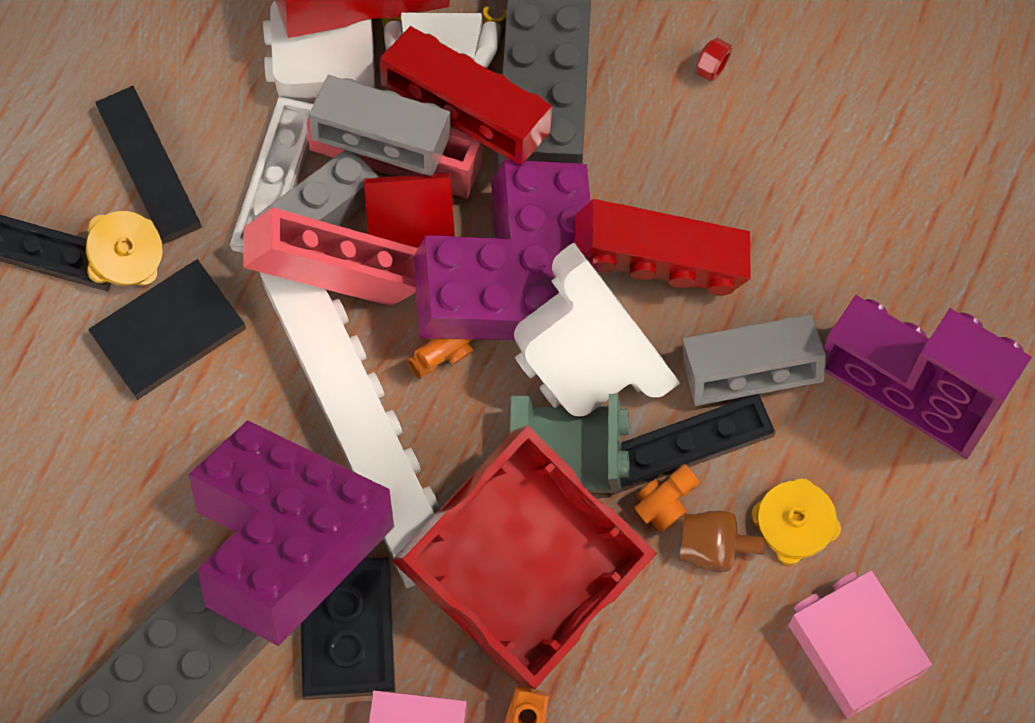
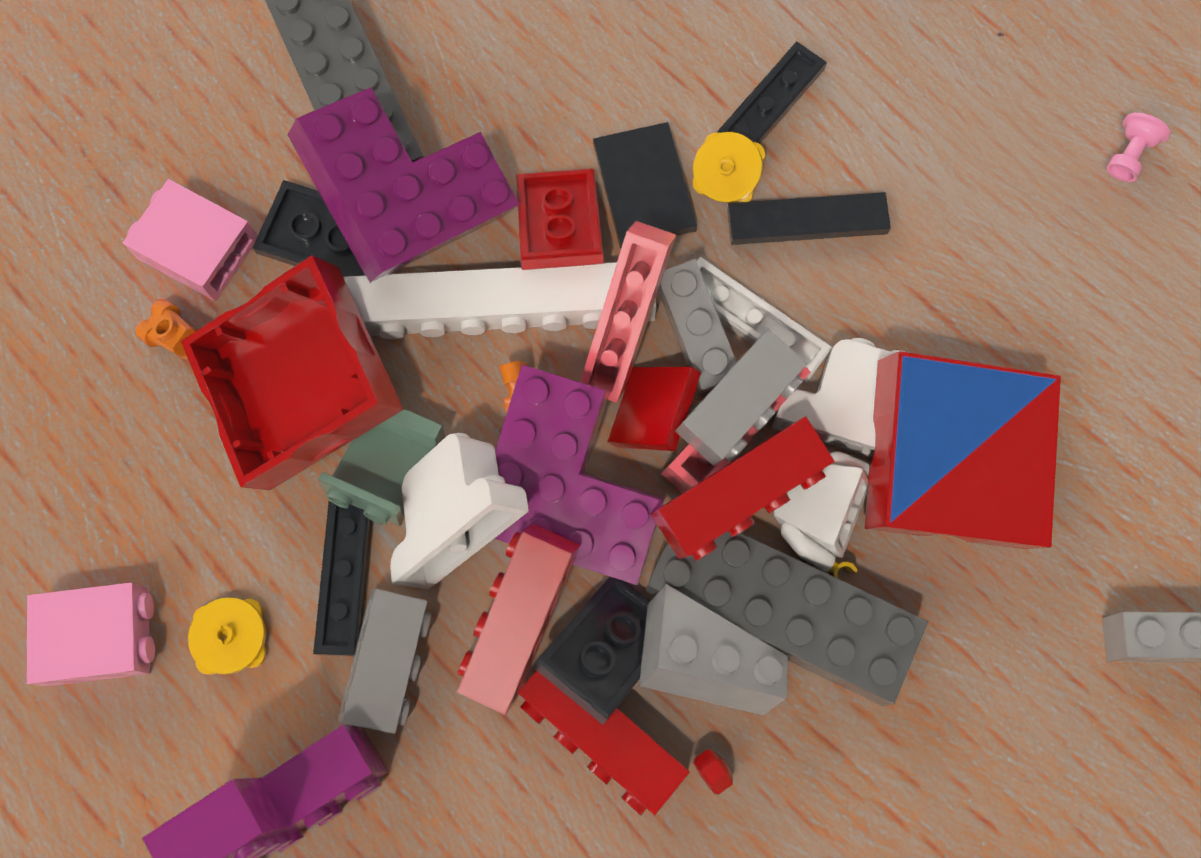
camera: 115 degrees right, 5 degrees up
(244, 381) = (558, 219): none -> red tile
(621, 89) = (708, 657): none -> light grey wedge
(654, 170) = (599, 650): none -> black tile
(661, 502) = (295, 526): orange plate -> none
(713, 539) = (243, 552): dark orange piece -> none
(727, 147) = (616, 748): none -> red brick

